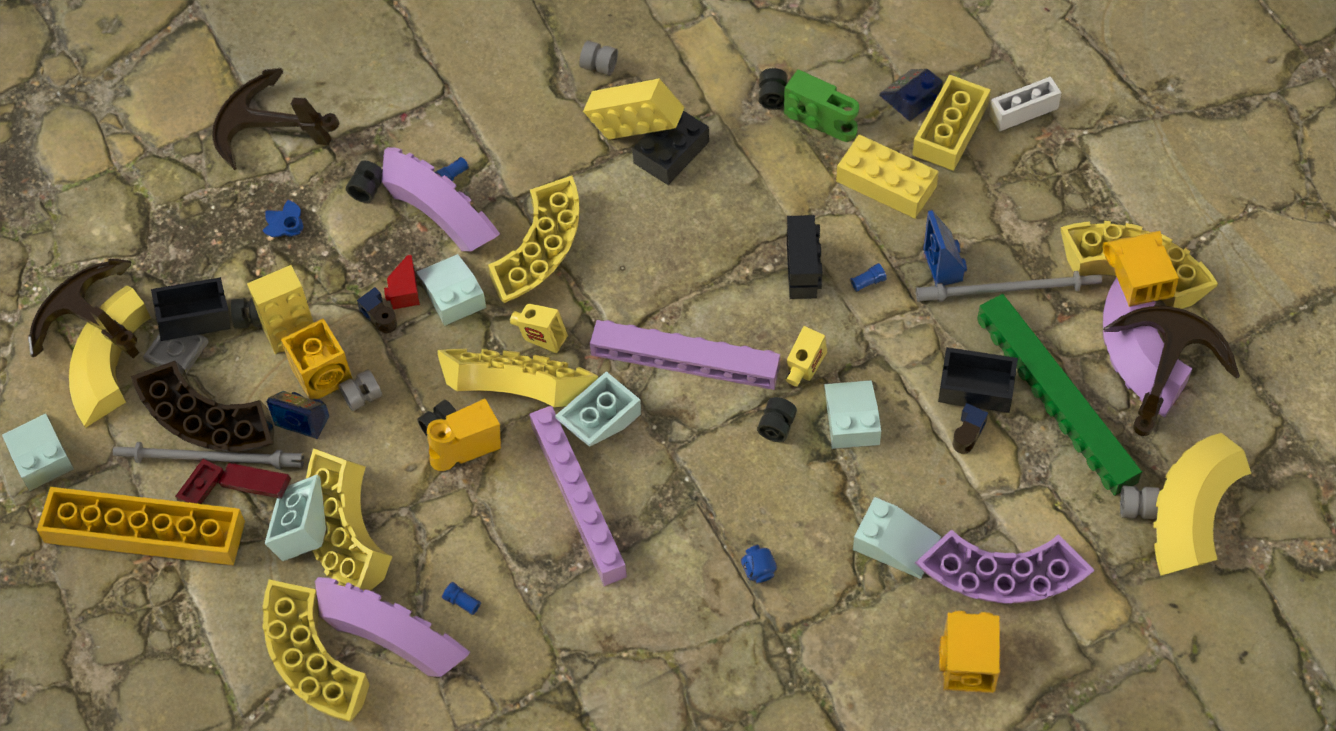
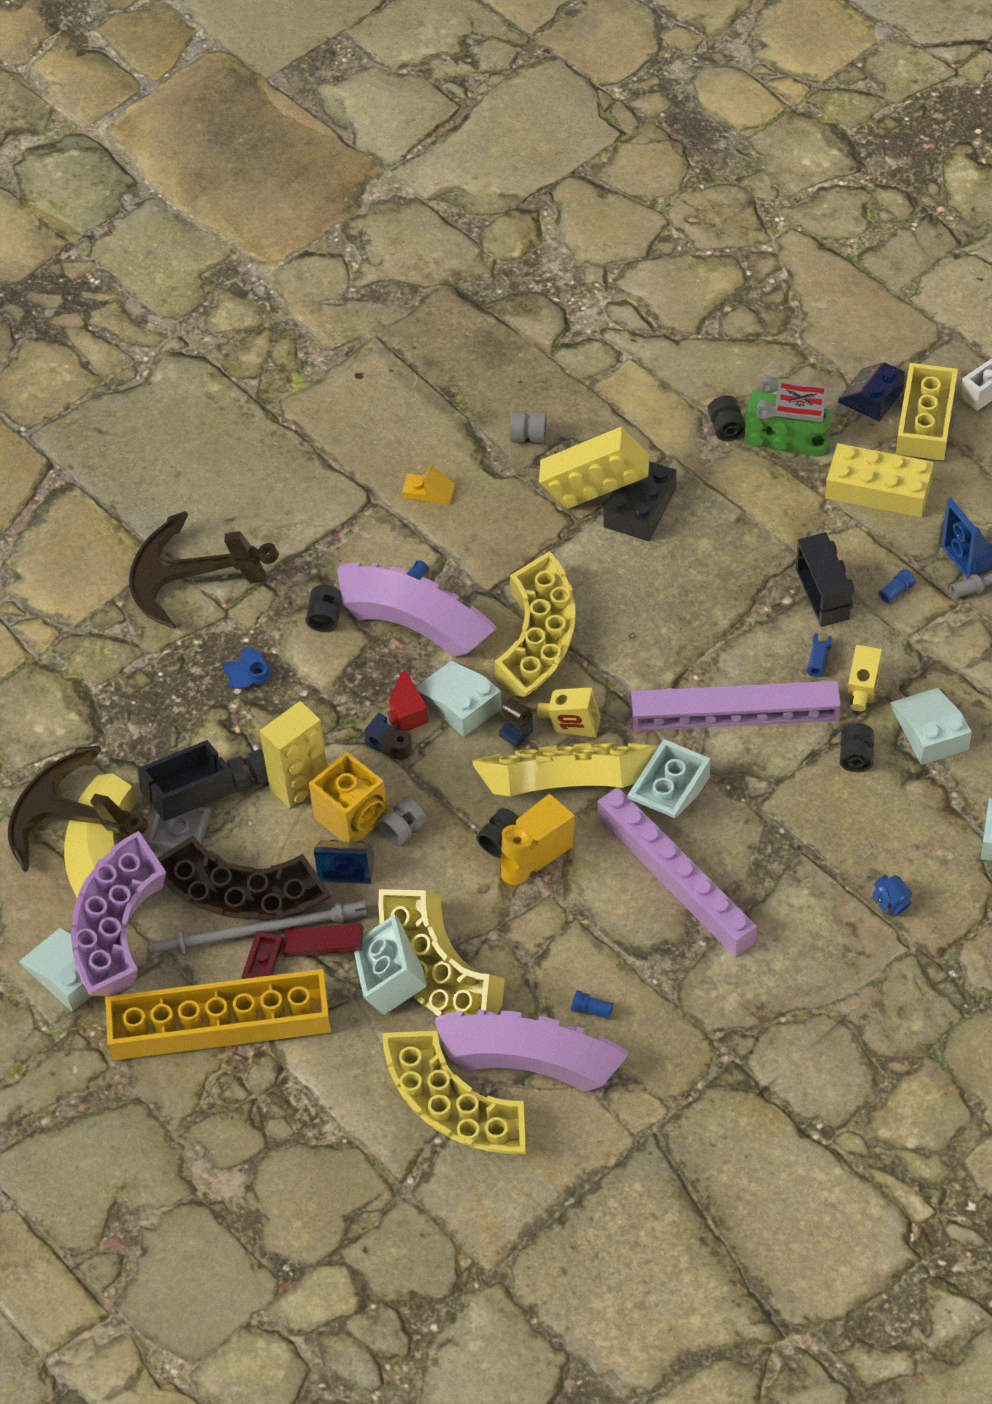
camera: 15 degrees left, 5 degrees down
(73, 412) = (103, 912): none -> lavender brick
(490, 324) = (517, 722): none -> leg
(496, 93) = (429, 488): none -> yellow slope
(776, 326) = (819, 656): none -> blue bar
(829, 87) = (792, 400): none -> light grey flag

